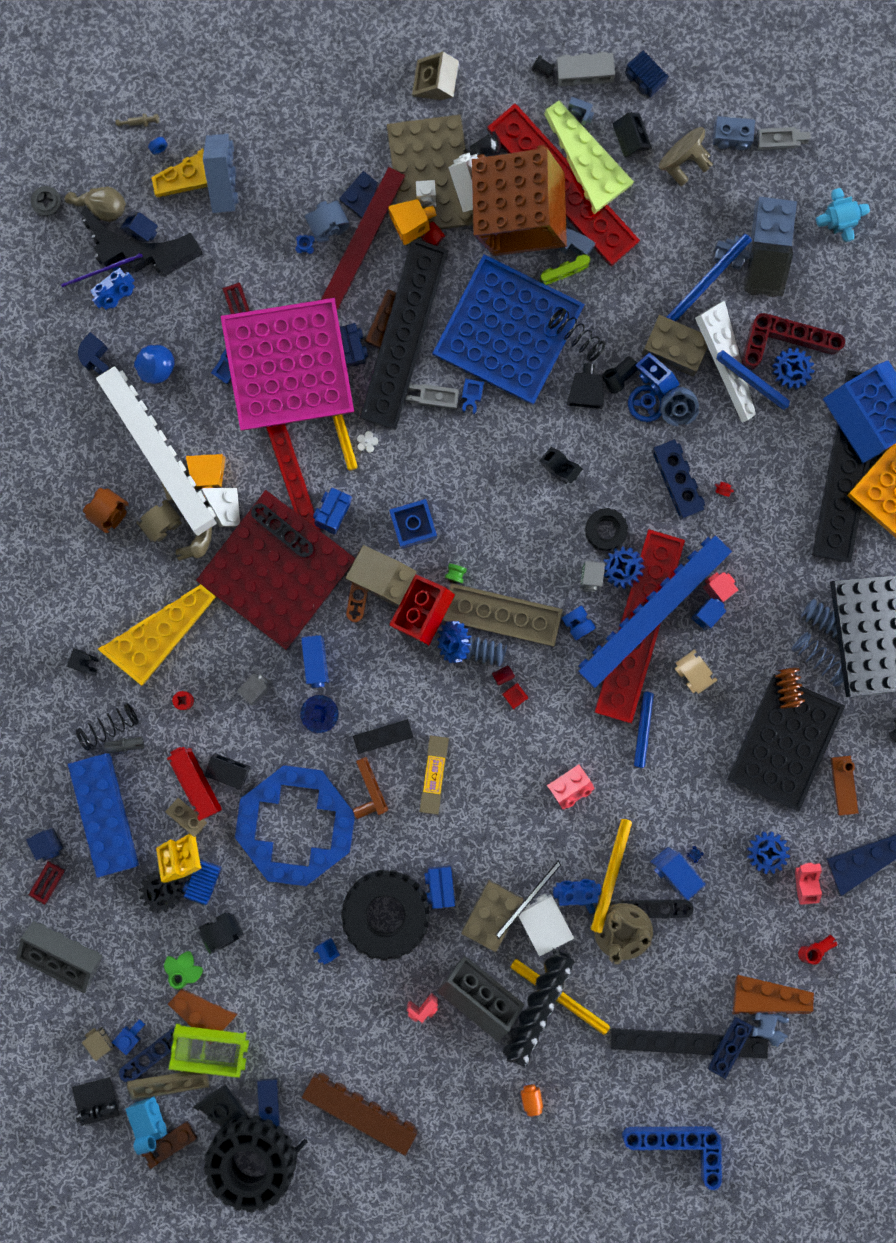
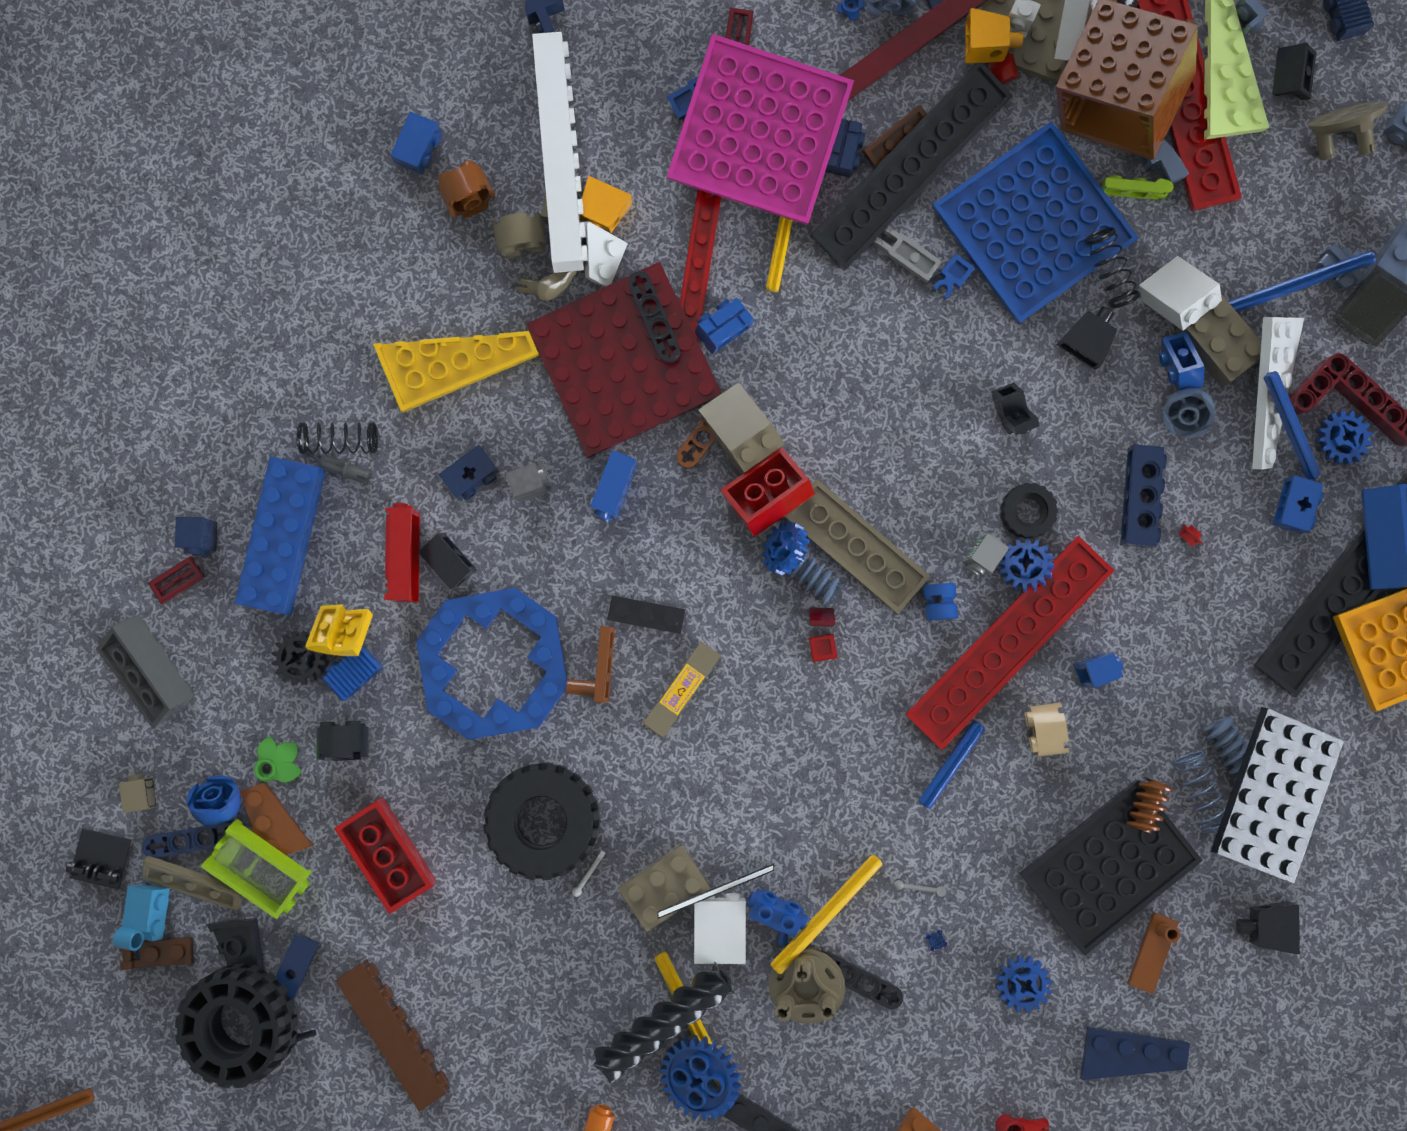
camera: 25 degrees right, 0 degrees up
(54, 494) = (416, 143): none -> blue brick
(80, 661) = (346, 346): black hinge -> none
(128, 1037) = (171, 807): blue plate -> none
(154, 364) = (607, 53): blue piece -> none
(154, 1019) = (214, 801): none -> blue cylinder
(185, 817) = (372, 588): dark tan hinge -> none
(186, 702) = (443, 455): red wheel -> none
(202, 708) = (477, 462): none -> dark blue brick
(291, 994) = (385, 855): none -> red brick
(319, 714) = (587, 550): clear blue tile -> none
(327, 951) = (452, 827): blue tile -> none
(367, 442) = (804, 268): white plant -> none
(413, 524) = (809, 388): blue brick -> none
(427, 1009) = (533, 955): coral bracket -> none
(434, 950) = (576, 891): none -> white hinge
(441, 887) = (622, 822): blue brick -> none
(455, 573) = (827, 470): bright green wheel -> none
(481, 998) = (601, 976): dark grey slope -> none
(571, 787) = (833, 787): coral bracket -> none
(576, 1045) = (700, 1077): none -> blue gear
(615, 377) = (1131, 340): black piece -> none
(631, 328) = (1180, 293): none -> white brick
(650, 397) = (1159, 385): blue piece -> none
(657, 608) = (1036, 634): blue brick -> none
(677, 873) = (907, 953): blue brick -> none
(680, 819) = (940, 891): none -> light grey hinge
(720, 586) = (1129, 645): coral brick -> none
(782, 440) = (1288, 512): none -> blue brick
(808, 883) = (1051, 1045): coral brick -> none

